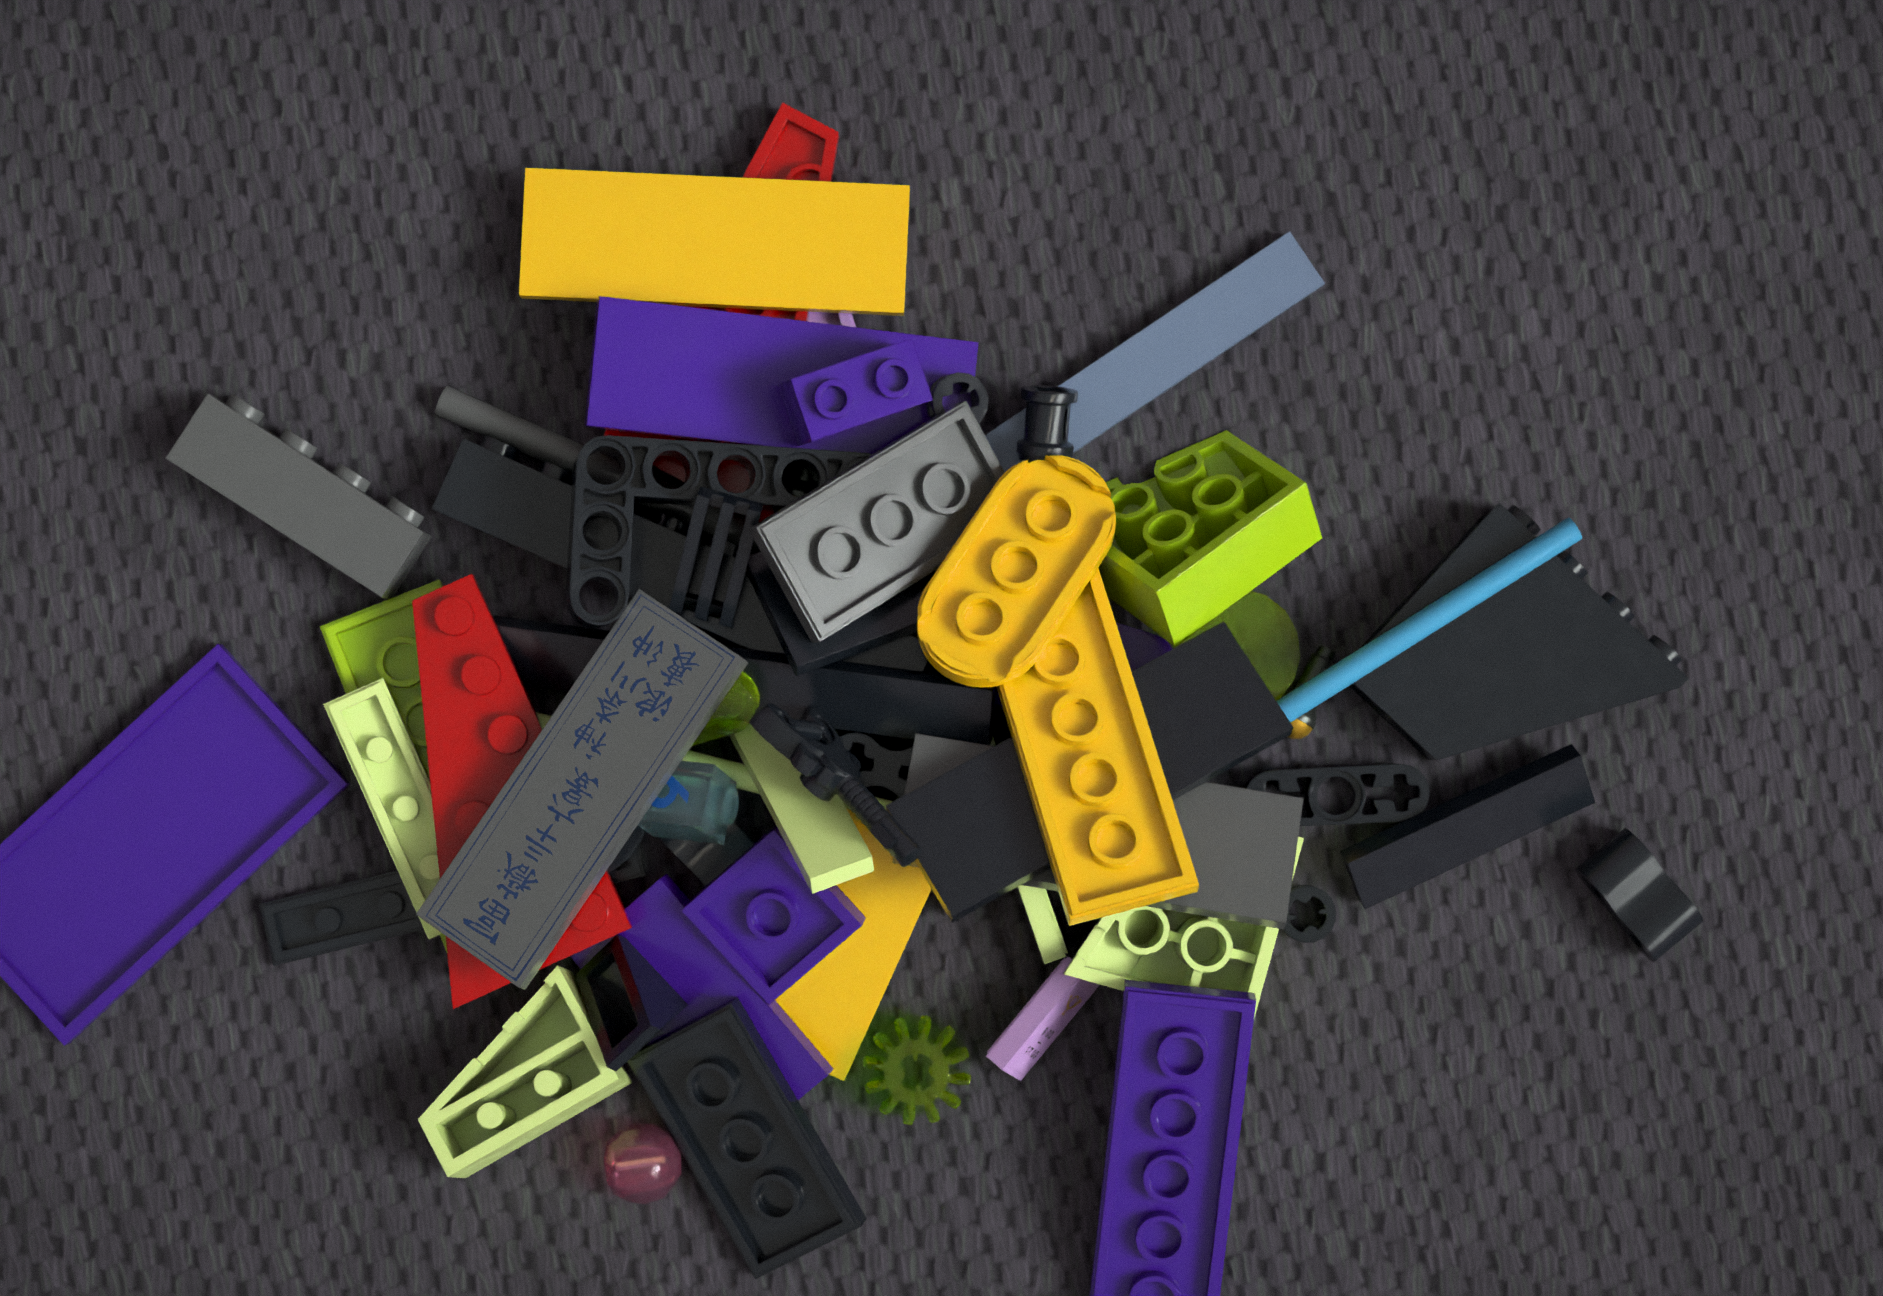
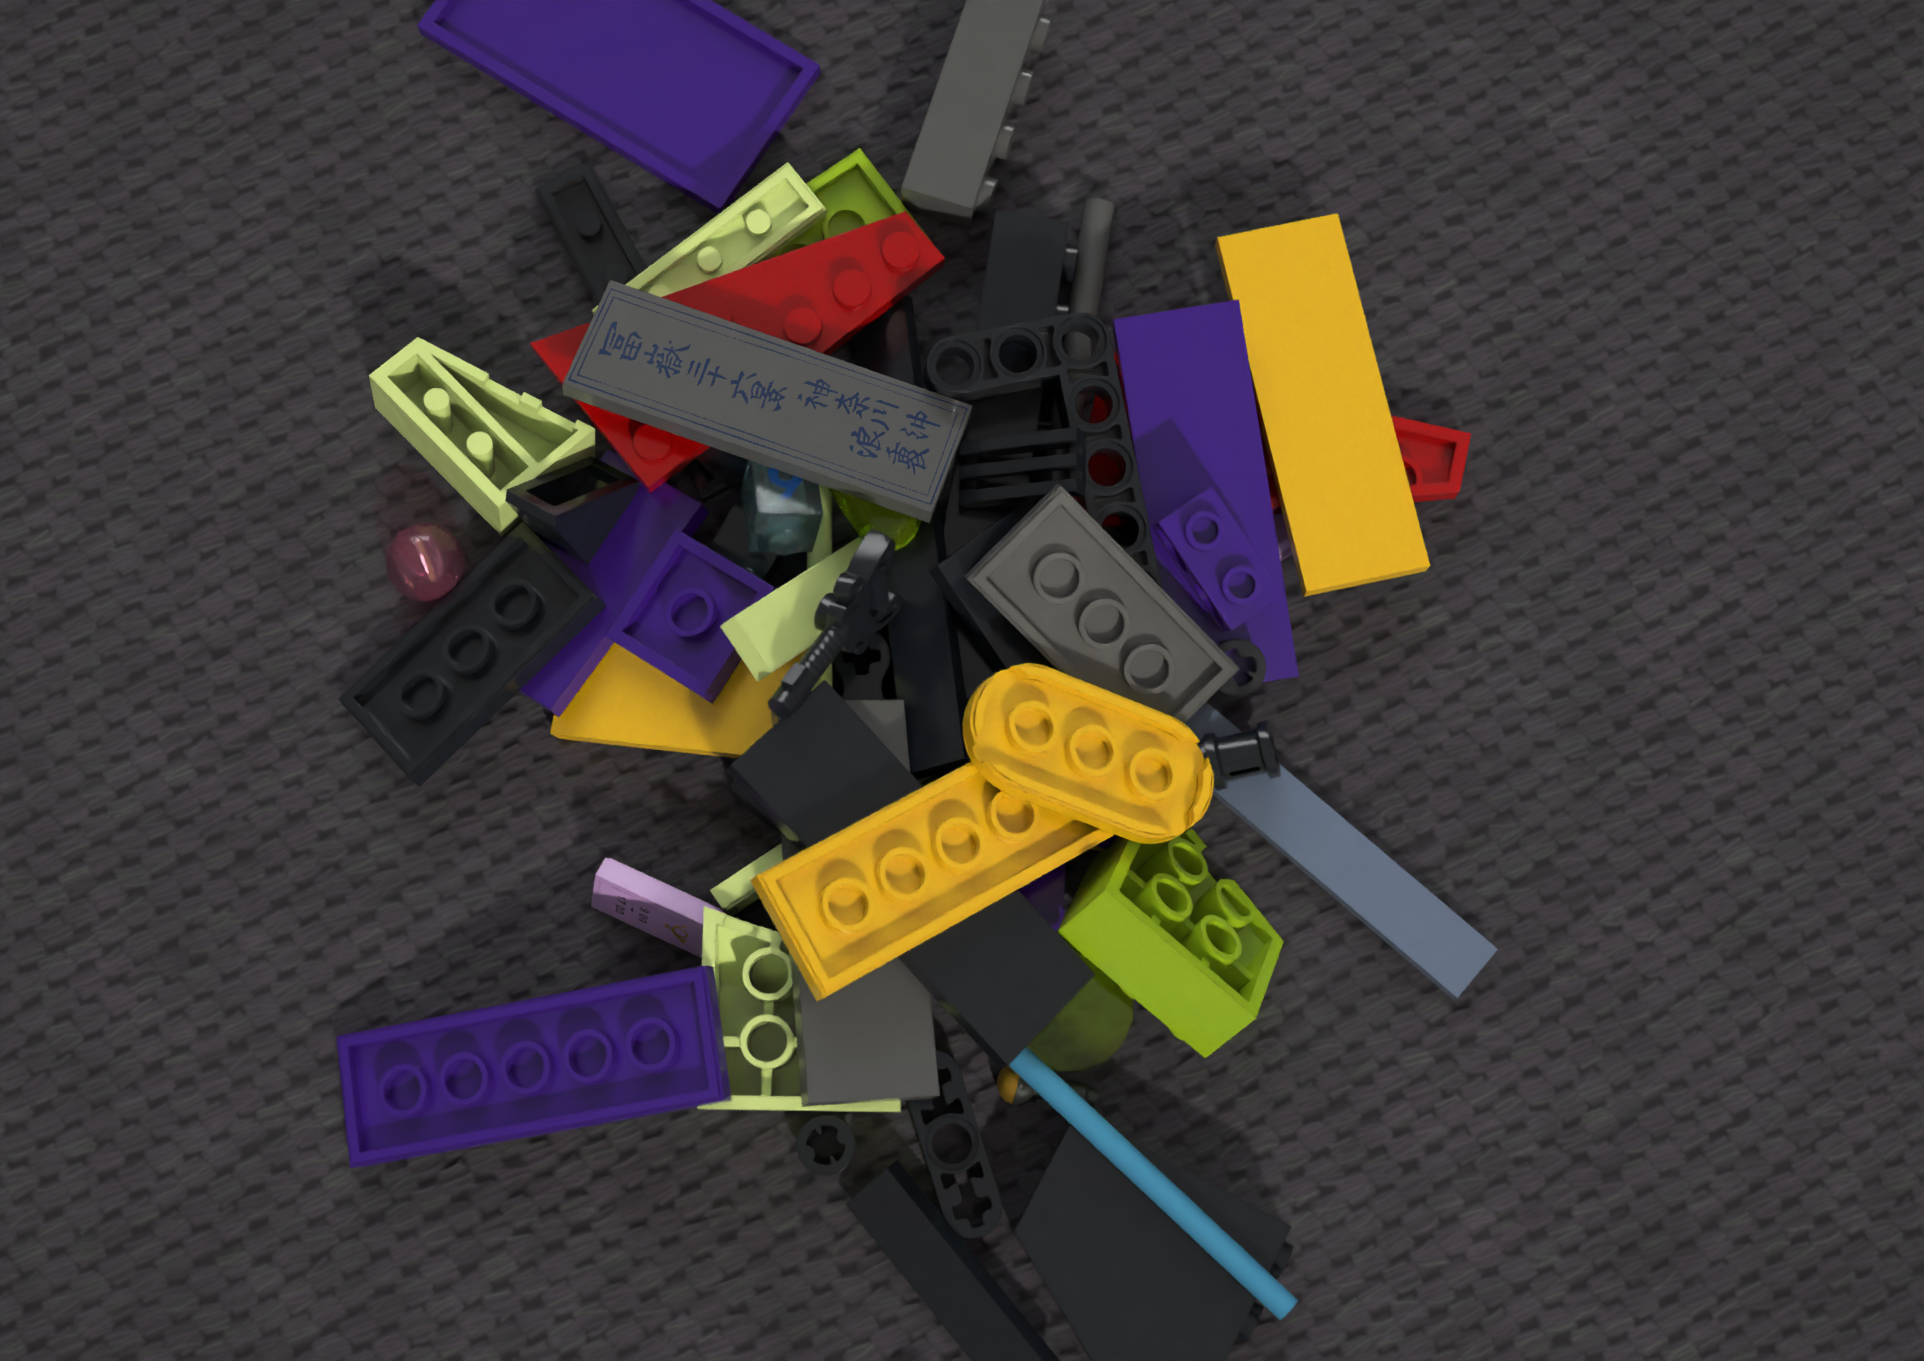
camera: 75 degrees right, 10 degrees down
(938, 1069) = (582, 820): clear neon green gear -> none

